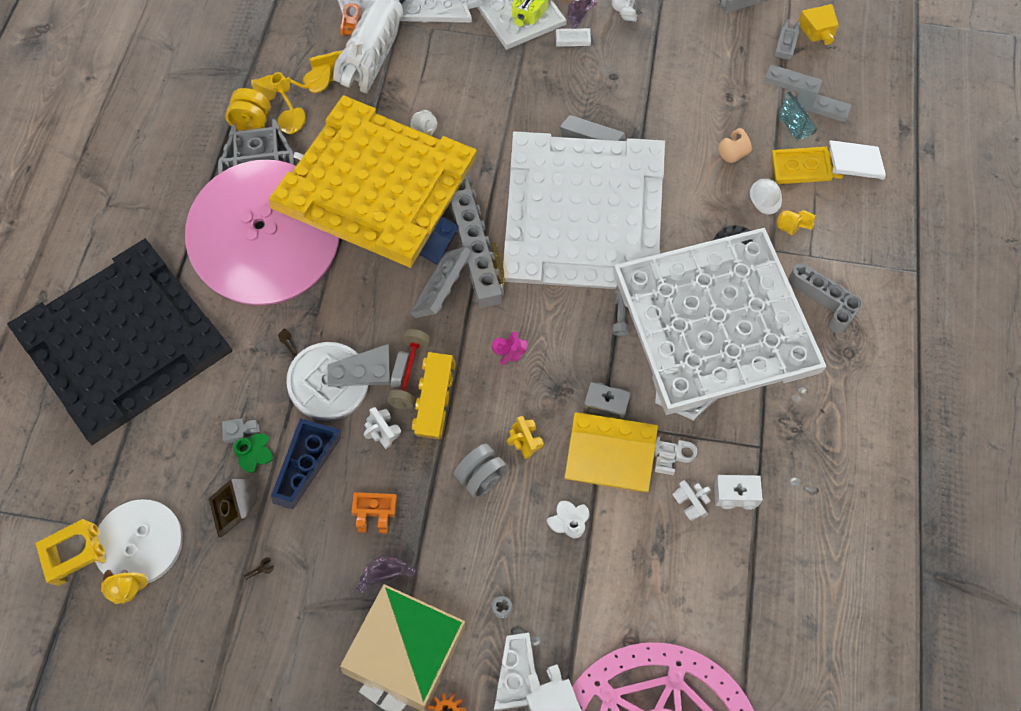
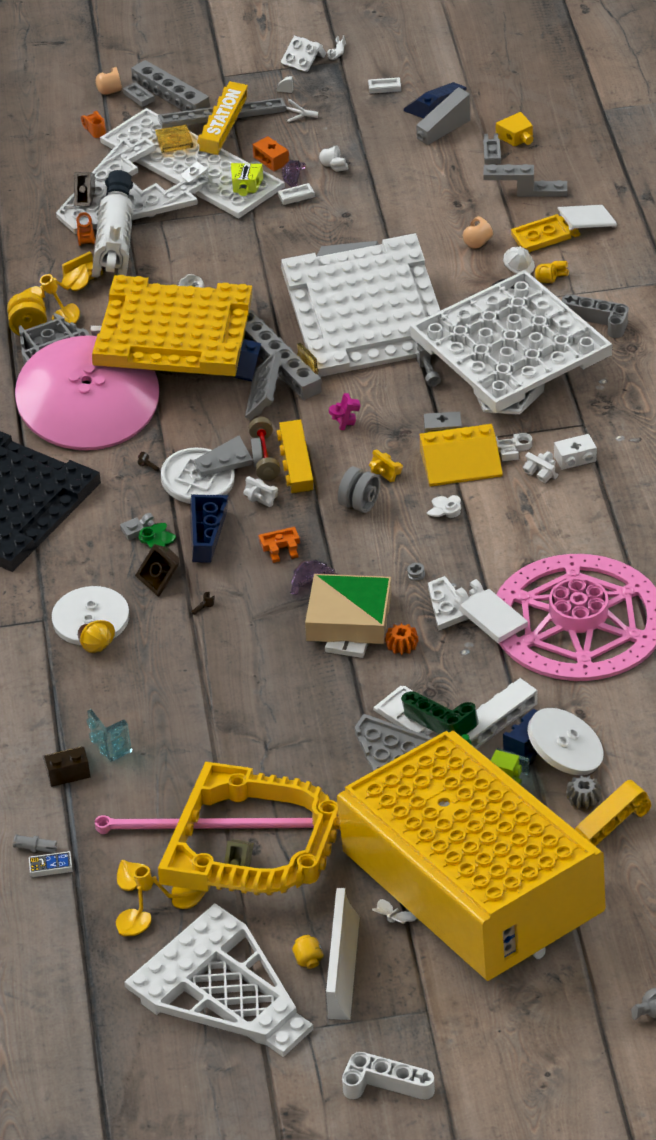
camera: 15 degrees left, 20 degrees down
(49, 557) = (33, 646): yellow panel -> none
(796, 117) = (521, 199): clear light blue bracket -> none

